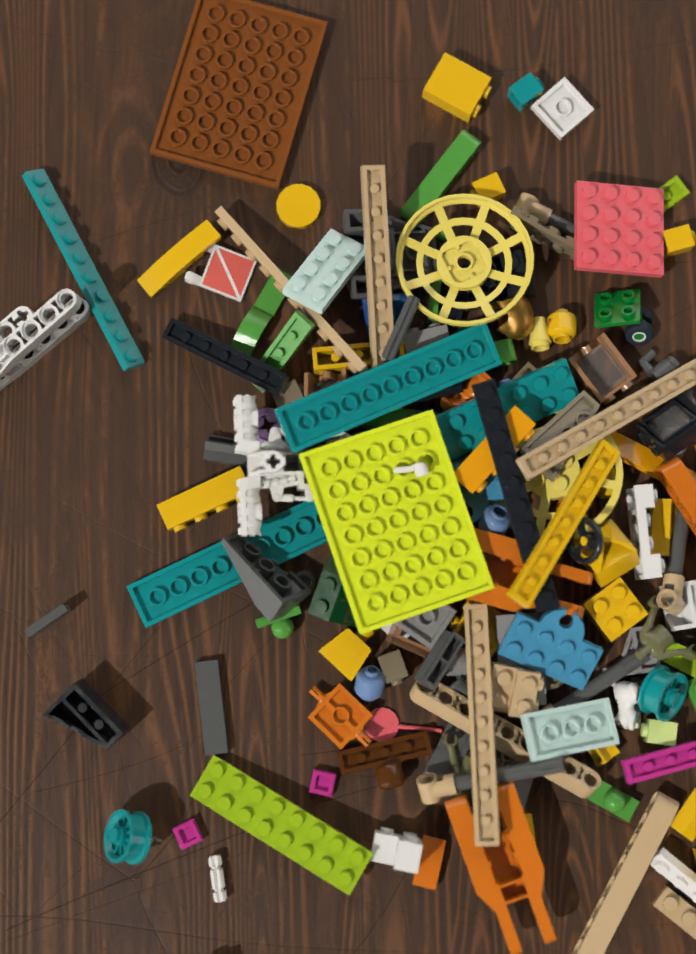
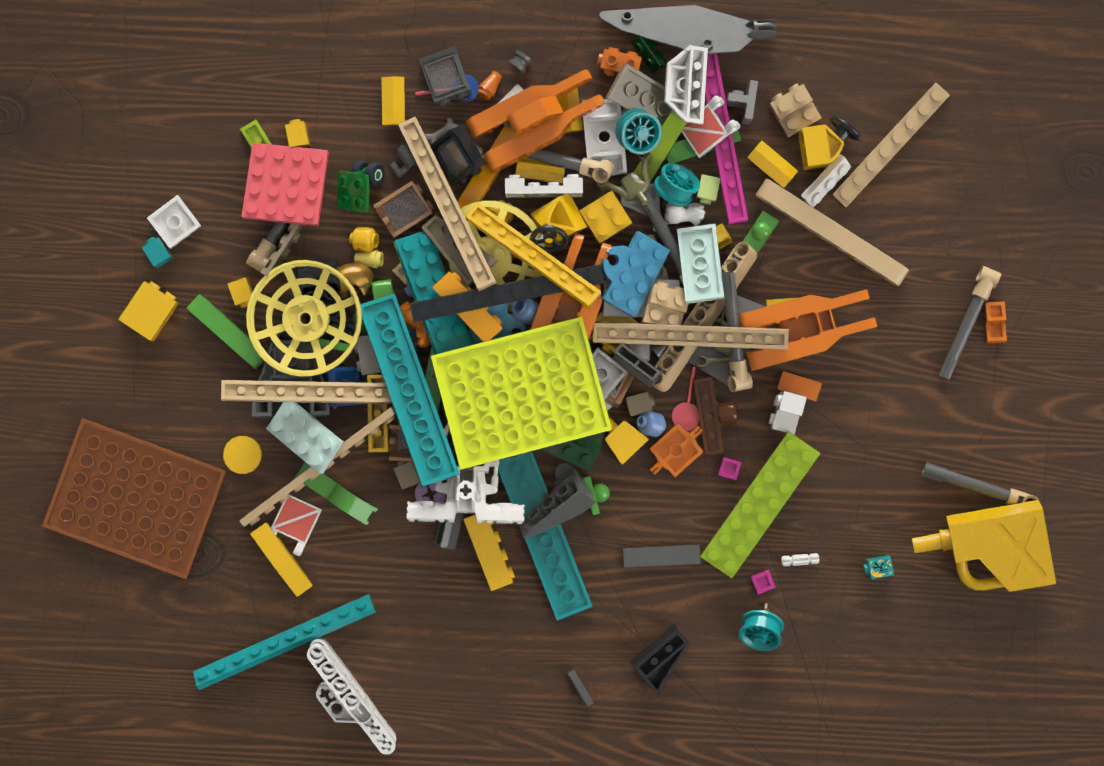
camera: 85 degrees left, 5 degrees up
(225, 356) = (370, 525): black plate -> none
(287, 342) = (370, 478): bright green plate -> none
(400, 328) = (359, 376): dark grey axle -> none
(419, 468) = (480, 370): white hand -> none

